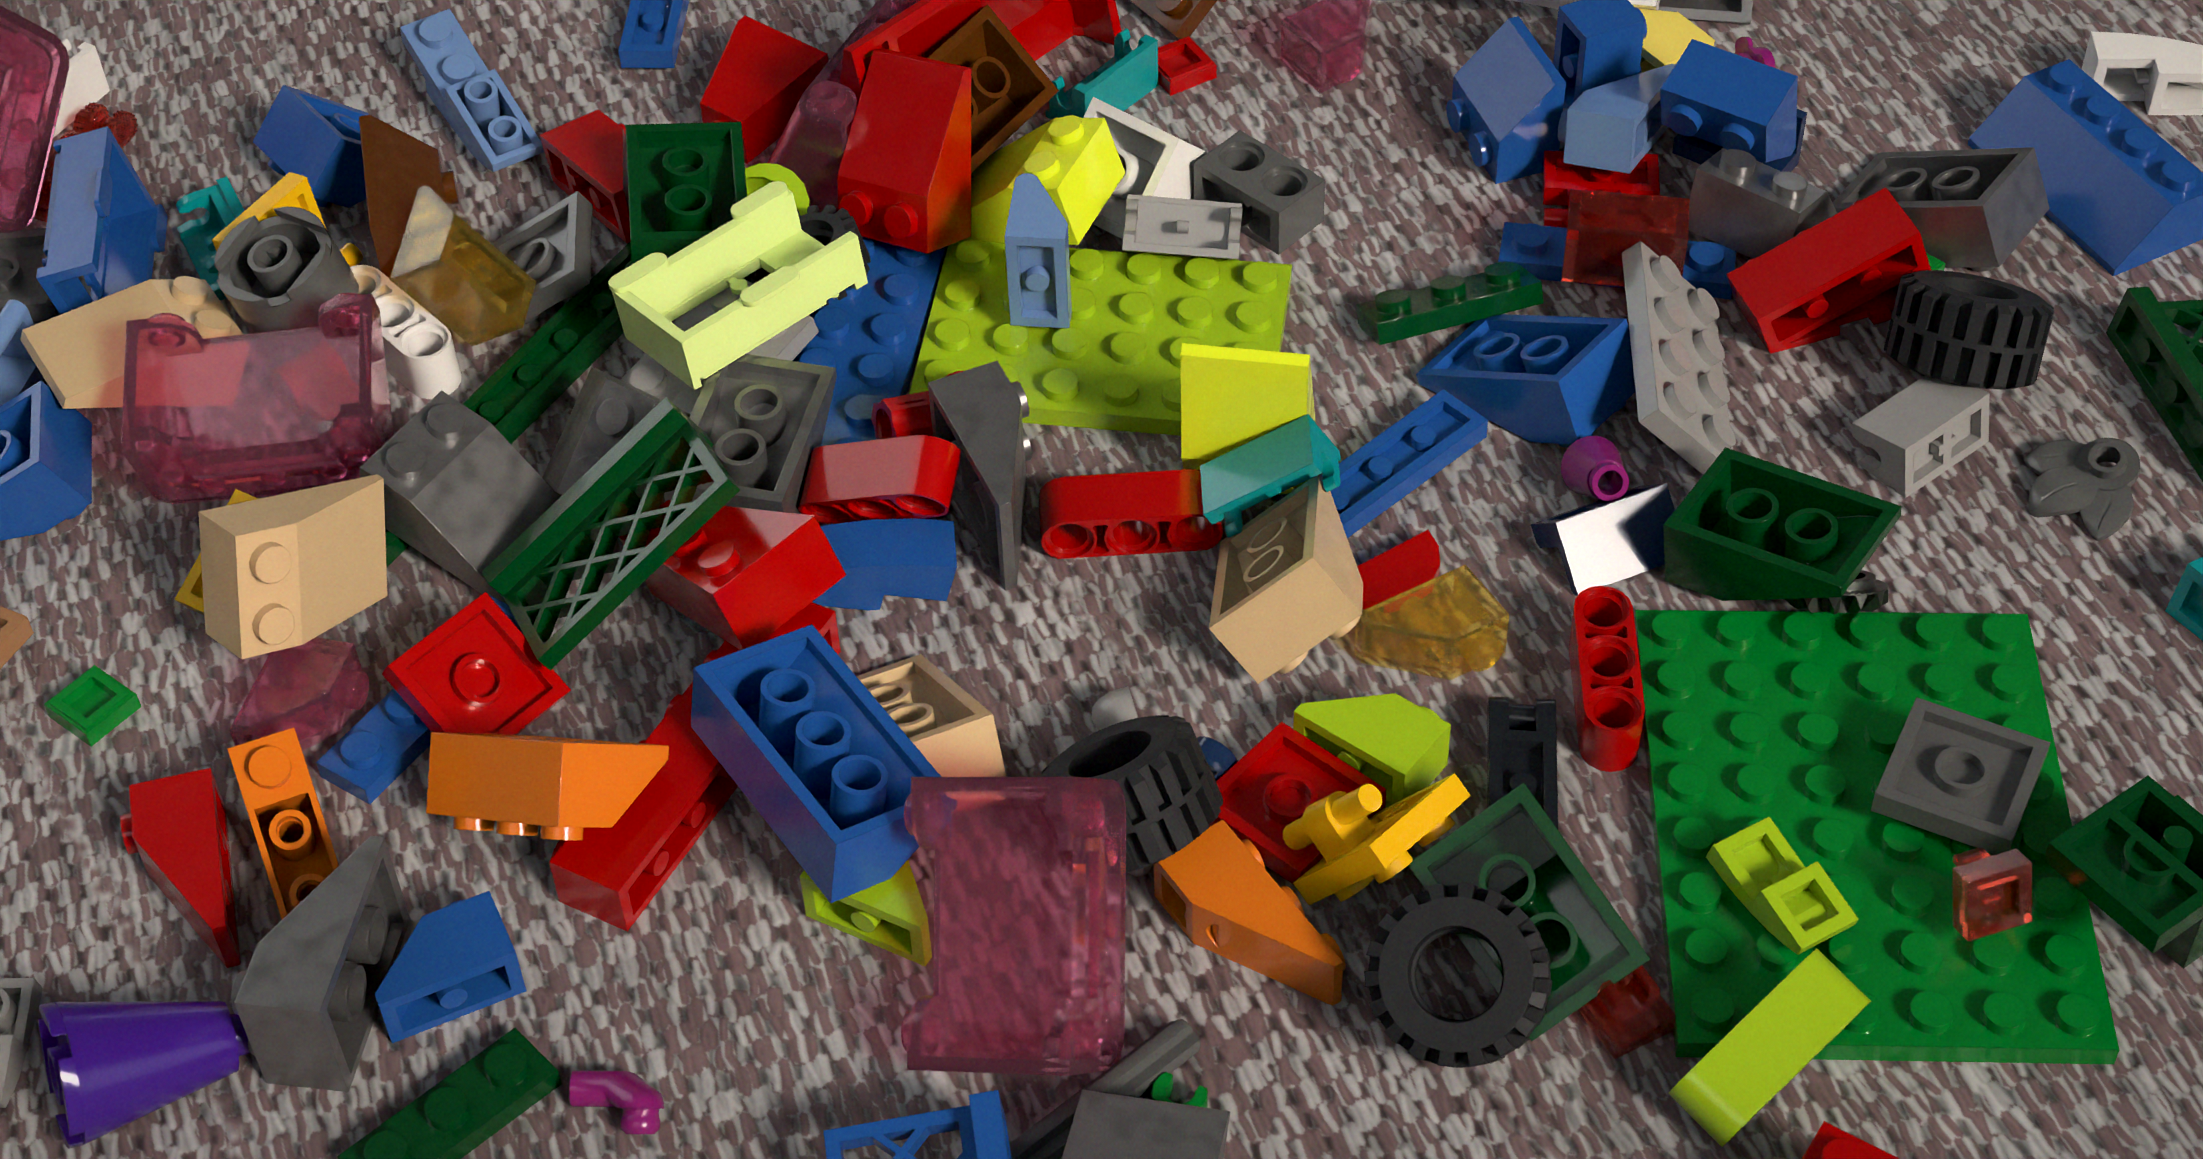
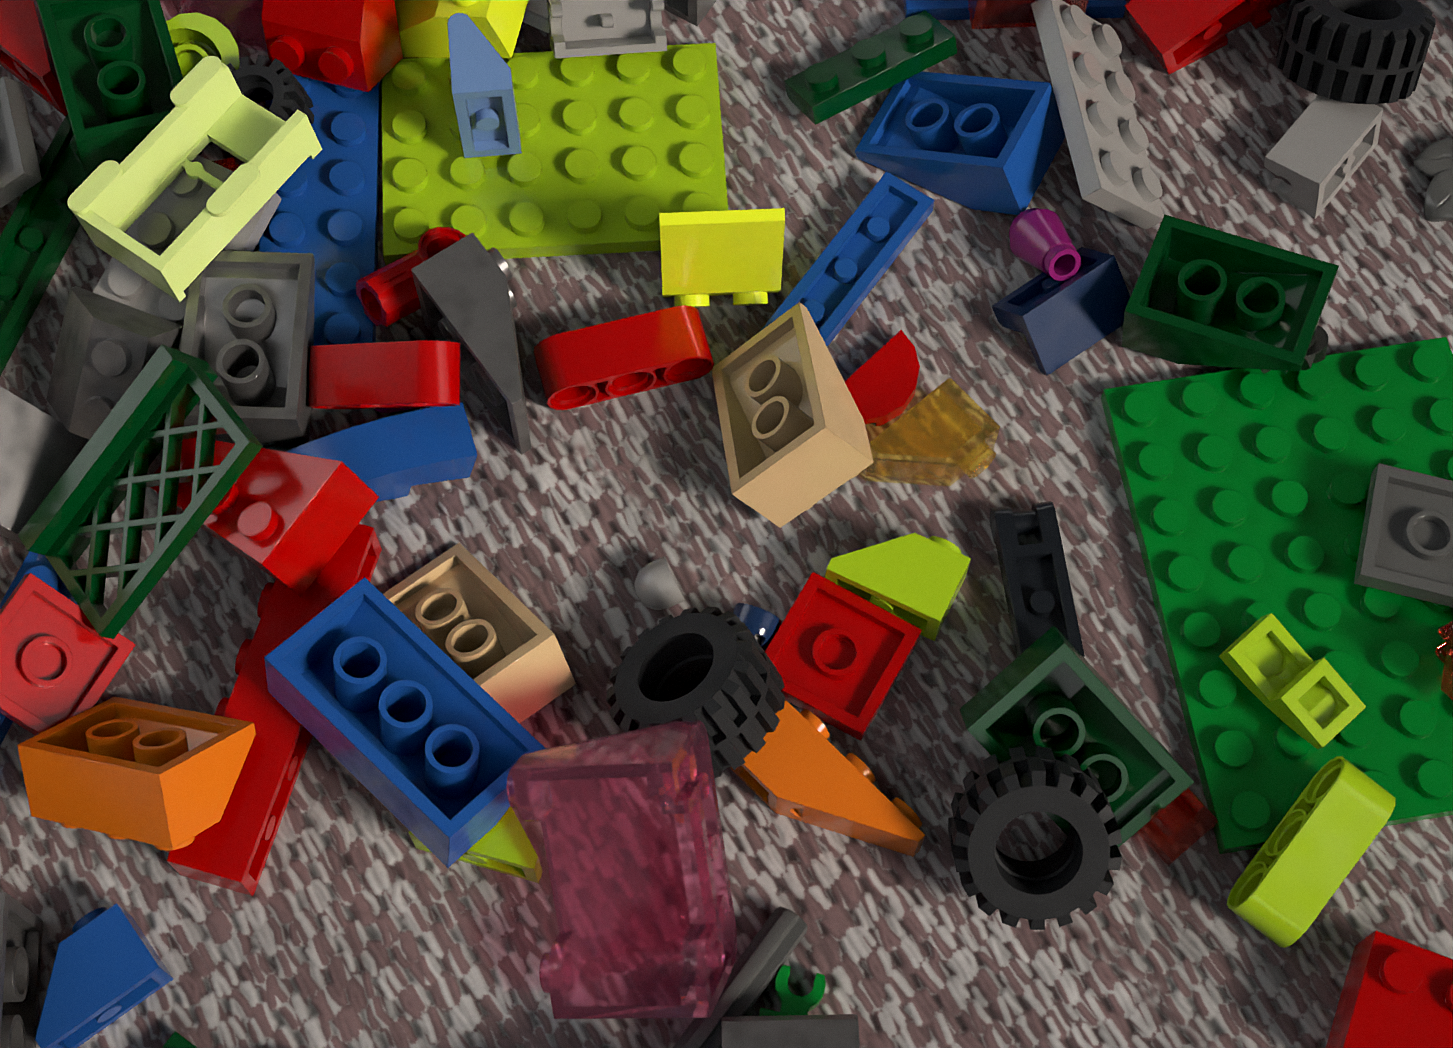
camera: 15 degrees left, 20 degrees up
(1266, 469) = (751, 308): teal hinge -> none
(1366, 848) = (931, 700): yellow plate -> none
(1606, 679) = (1096, 446): red beam -> none

